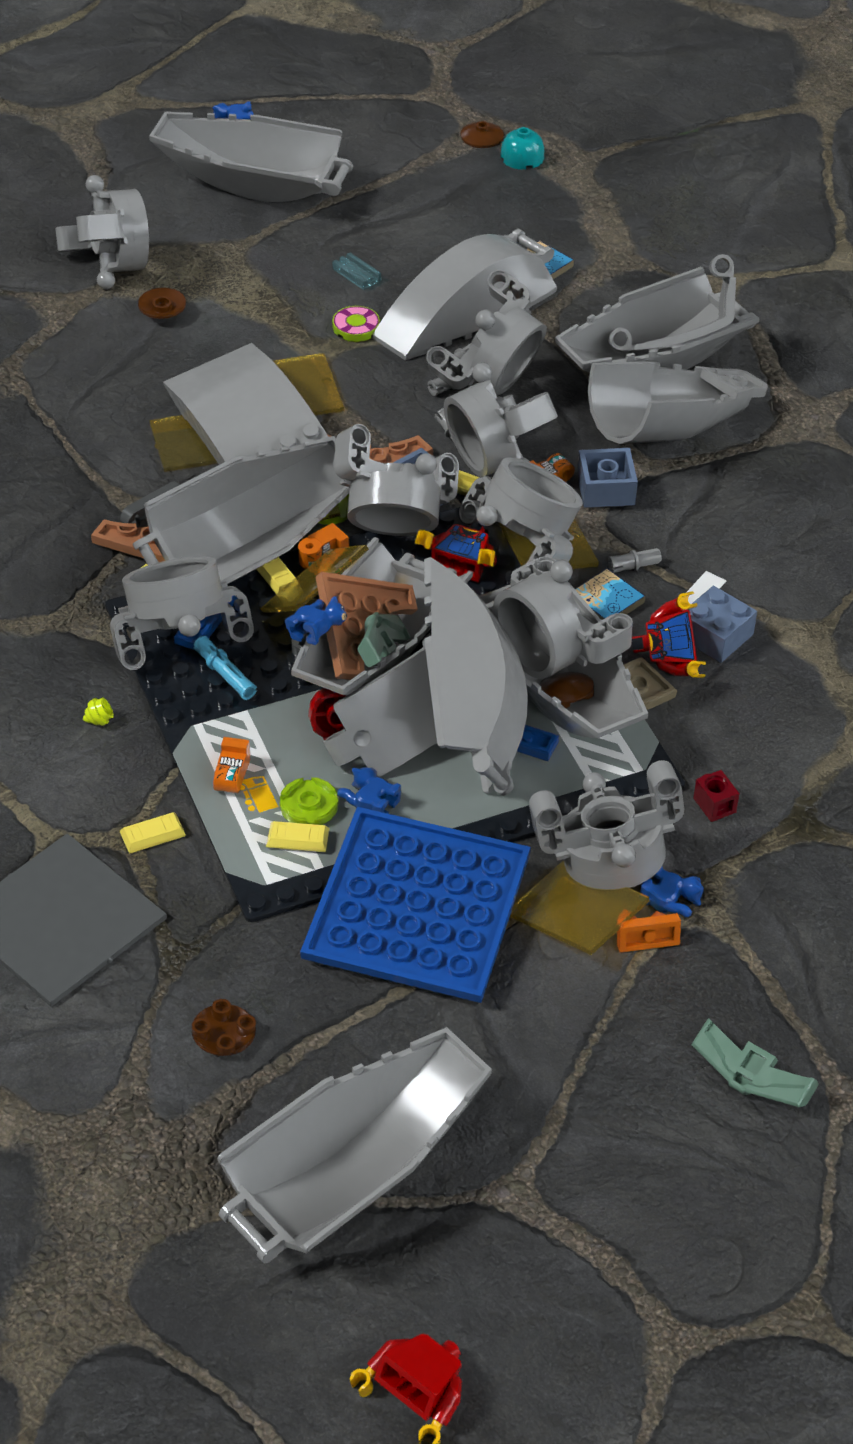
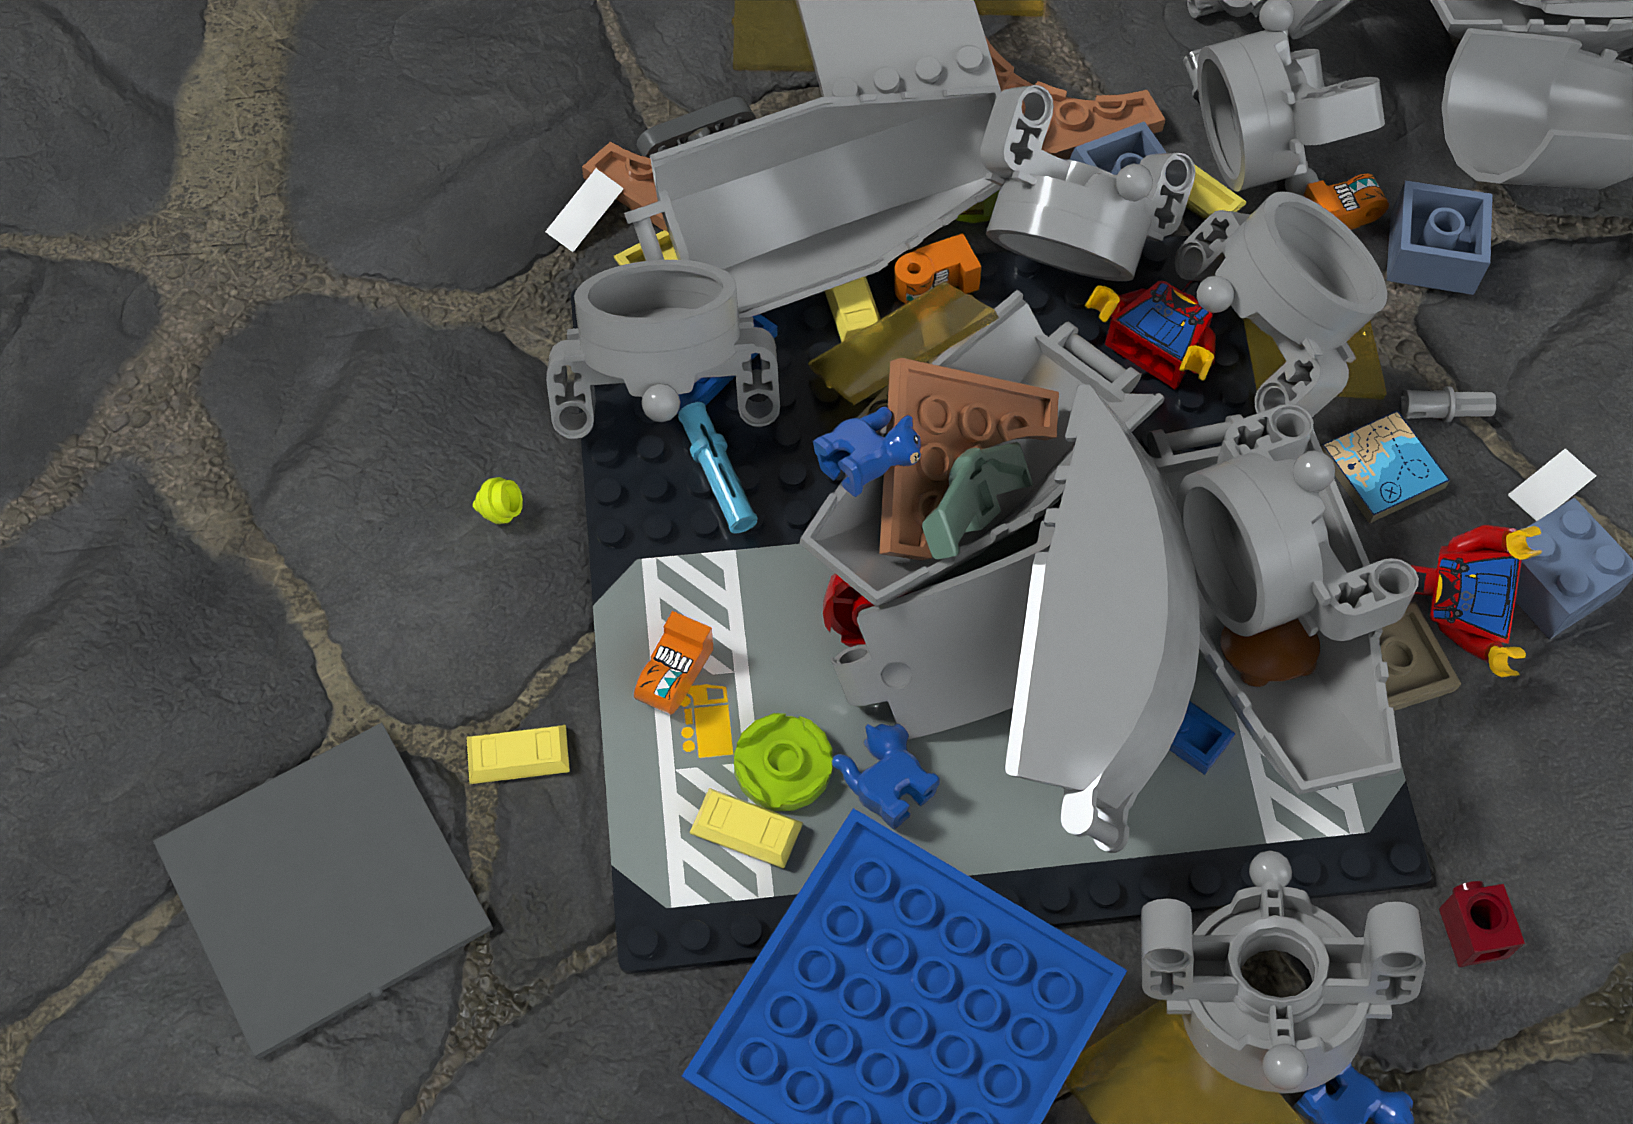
camera: 15 degrees right, 15 degrees up
(99, 558) = (584, 210): none -> white sticker

